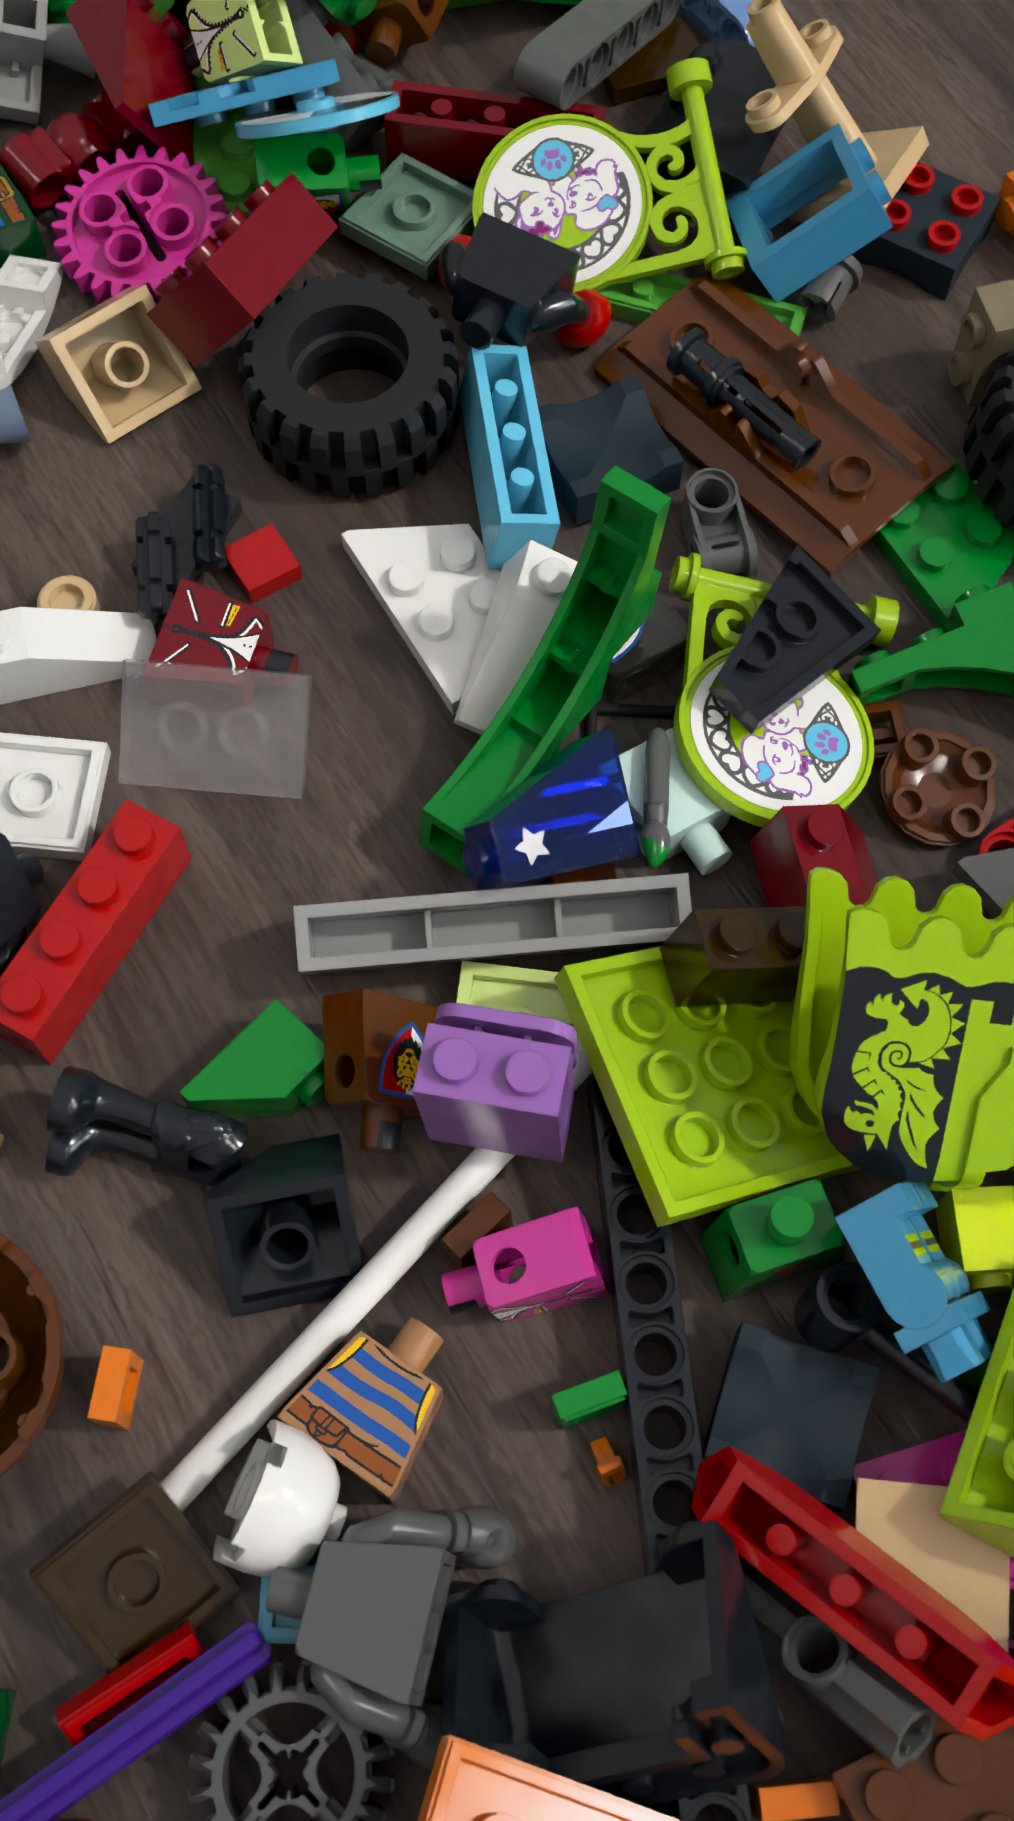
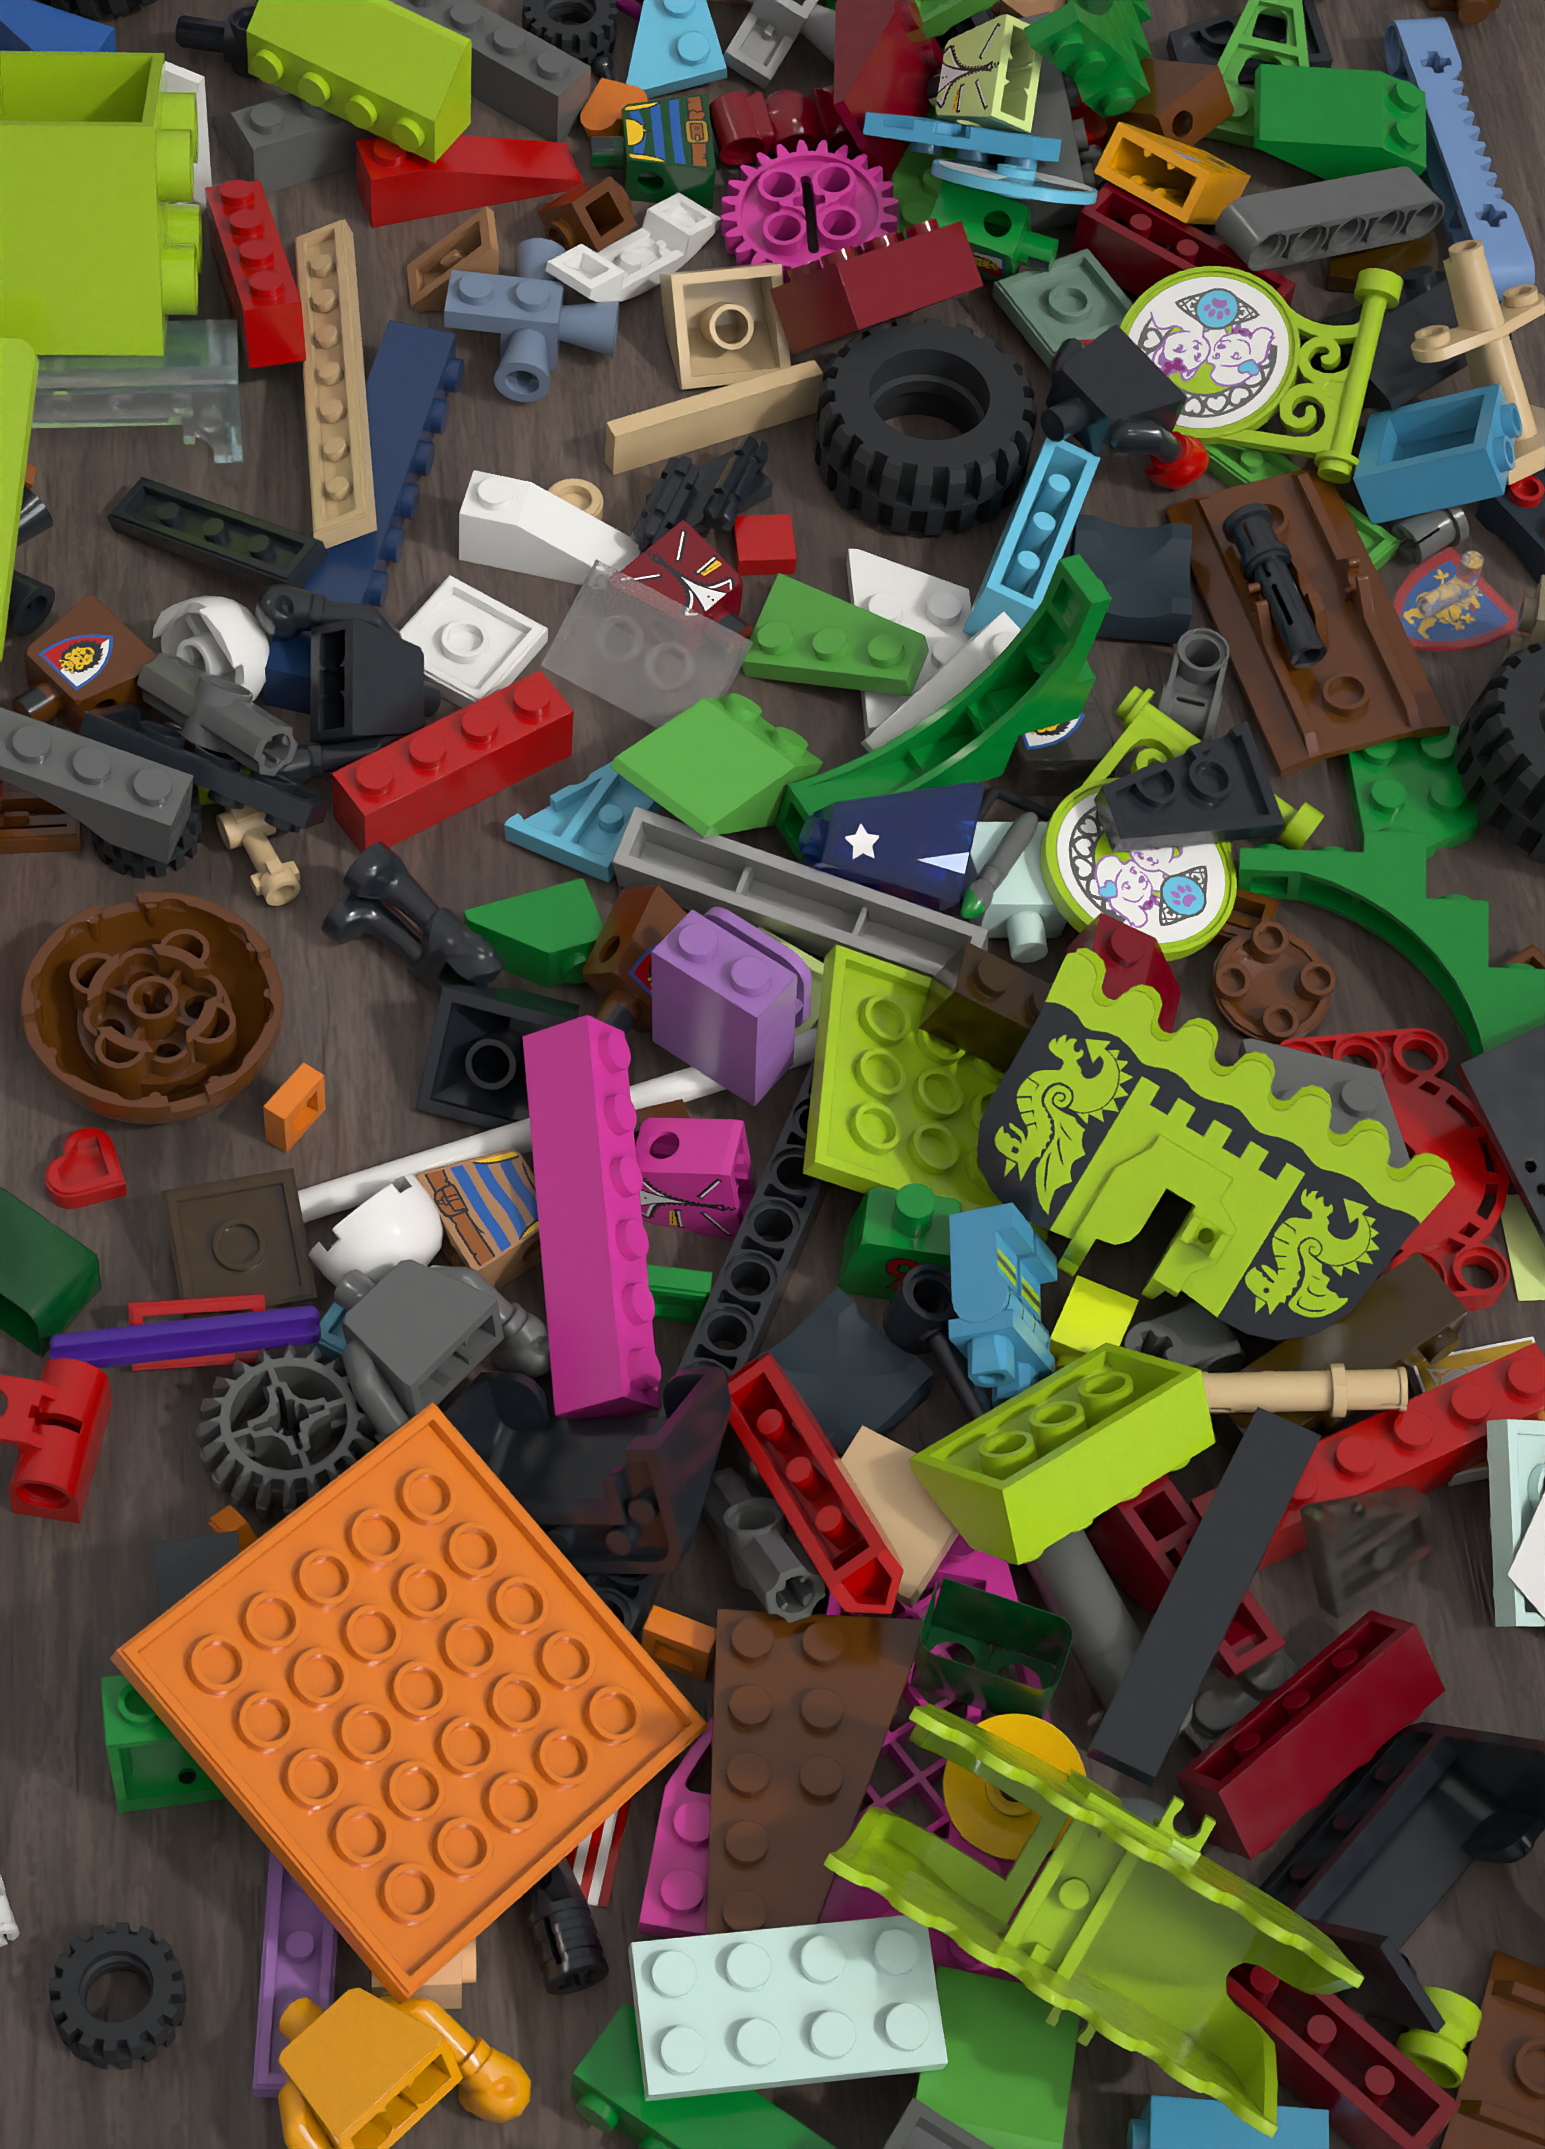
camera: 20 degrees right, 10 degrees down
(152, 460) = (712, 417): none -> tan tile
(248, 923) = (582, 823): none -> medium azure wing
(346, 823) = (718, 765): none -> bright green slope
(378, 636) = (831, 643): none -> bright green wing
(440, 52) = (1170, 174): none -> light orange slope
(481, 1389) = (591, 1221): none -> dark pink brick
(609, 1468) = (667, 1354): orange piece -> none
(880, 345) = (1451, 605): none -> clear shield

